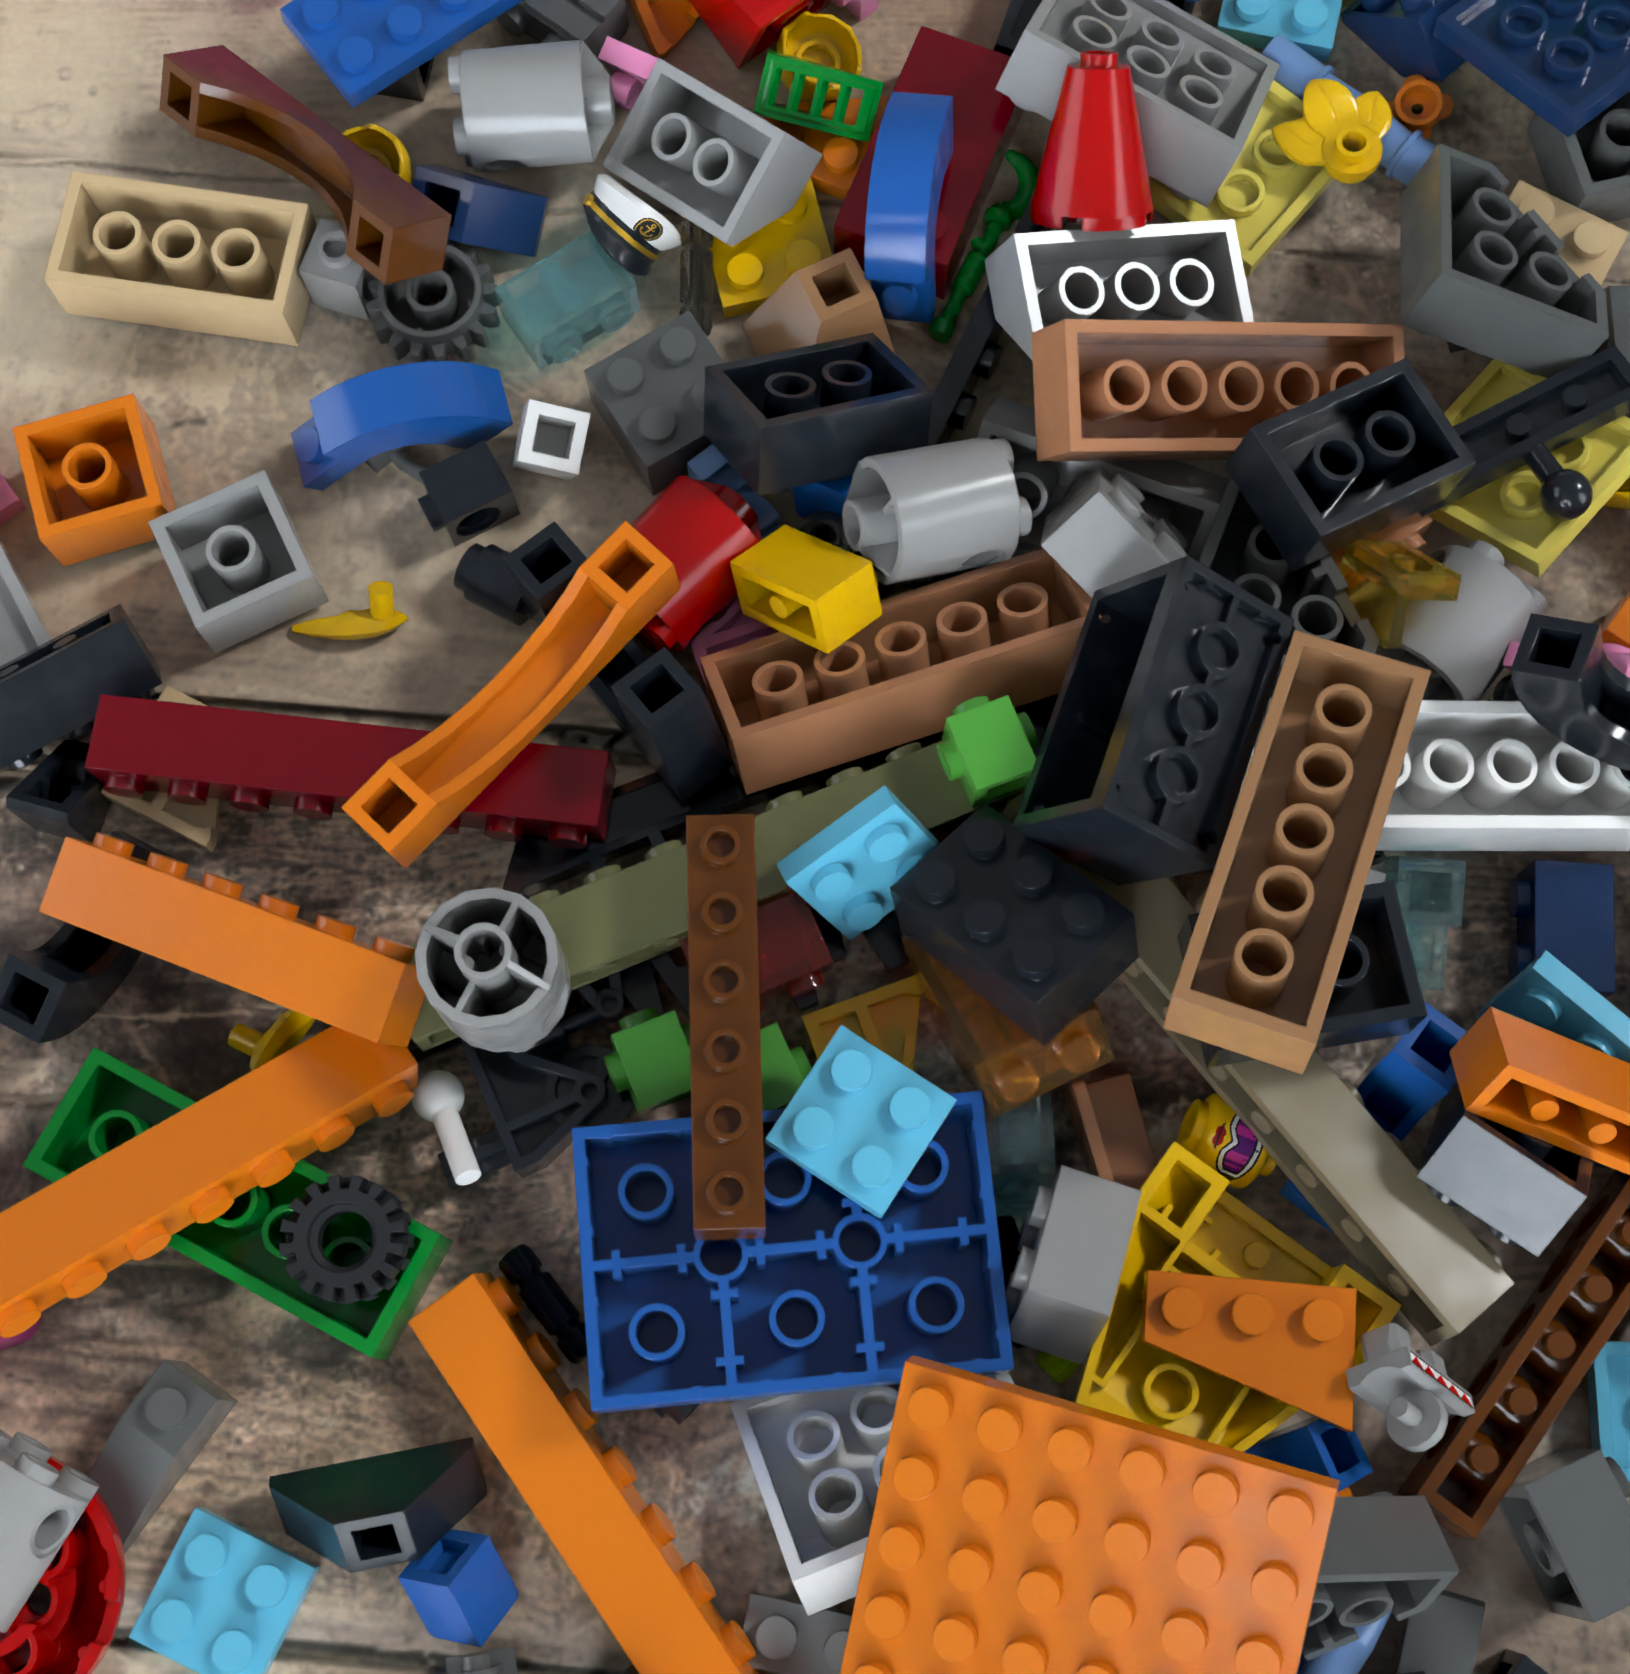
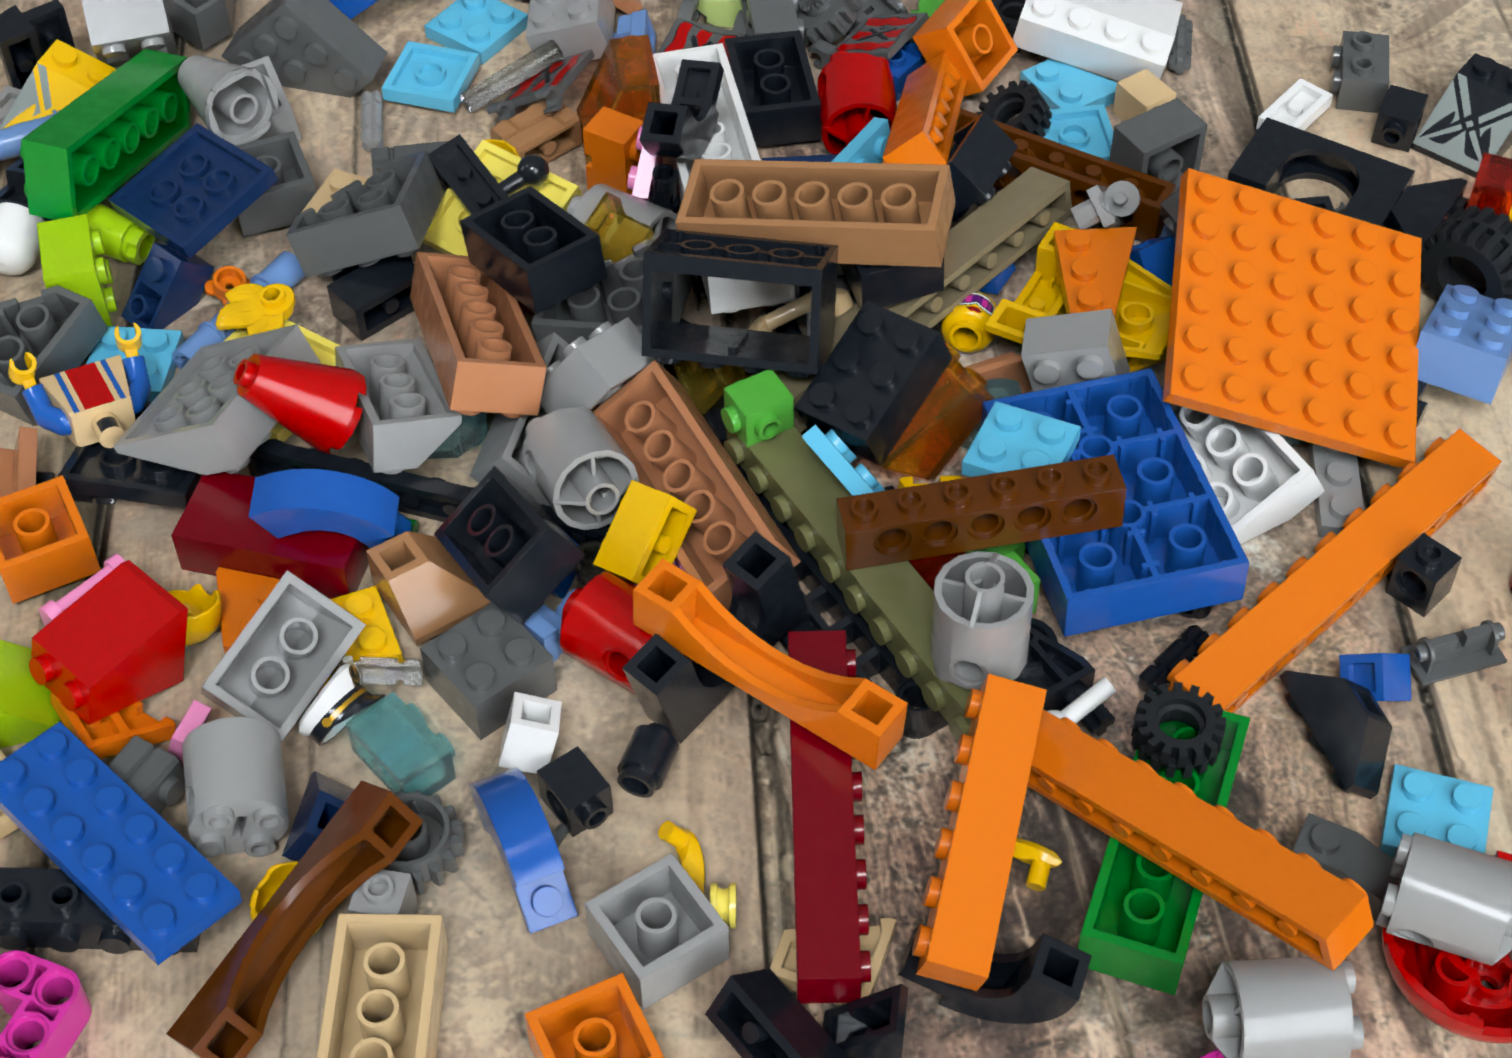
camera: 100 degrees left, 25 degrees down
(275, 649) = (724, 902): none -> light yellow bush
(766, 105) = (229, 597): green slope -> none
(1361, 281) = (373, 296): none -> black brick

